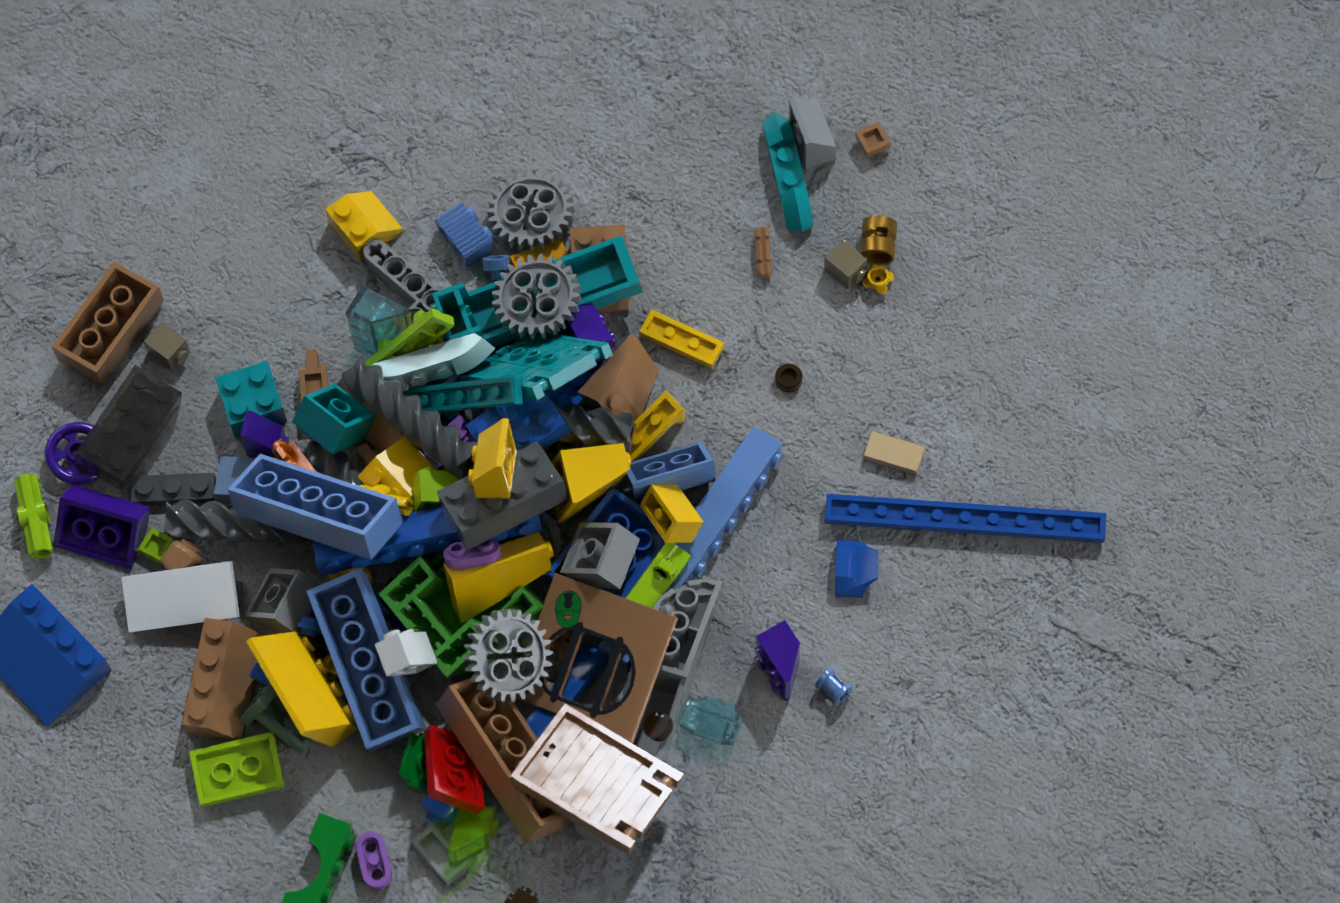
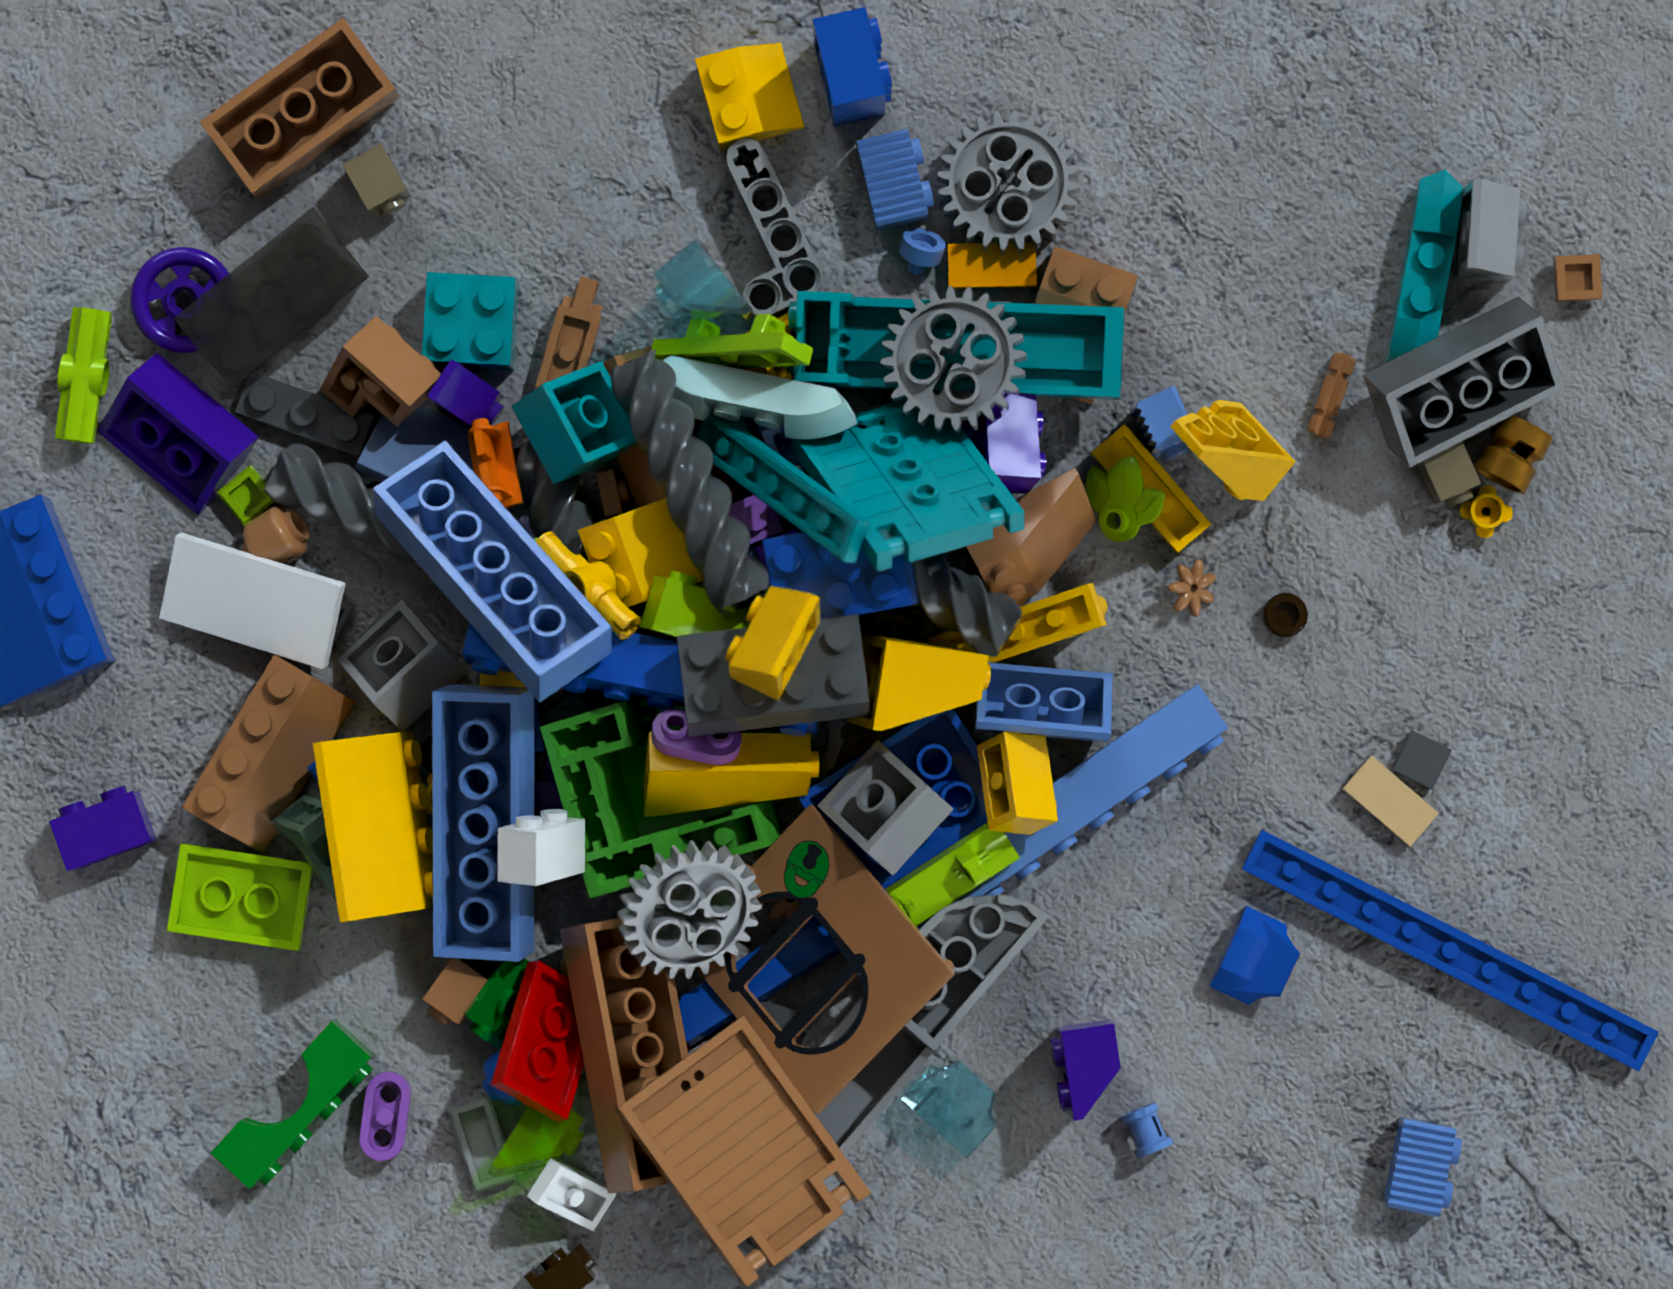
camera: 20 degrees right, 20 degrees up
(139, 762) = (103, 829): none -> dark purple brick
(207, 438) = (381, 371): none -> medium nougat brick
(309, 626) = (419, 729): blue plate -> none
(386, 769) = (454, 991): none -> medium nougat brick
(415, 177) = (849, 66): none -> blue brick
(504, 859) = (571, 1194): none -> white slope
(658, 726) = (865, 1102): dark brown tile -> none
(668, 344) = (1122, 493): none -> lime plate
(673, 296) = (1155, 418): none -> medium blue brick
(720, 295) = (1235, 448): none -> yellow wedge
(728, 382) = (1192, 587): none -> medium nougat plant
(832, 209) = (1464, 381): none -> dark grey brick
(902, 423) = (1421, 760): none -> dark grey tile
(1003, 643) = (1421, 1167): none -> medium blue brick

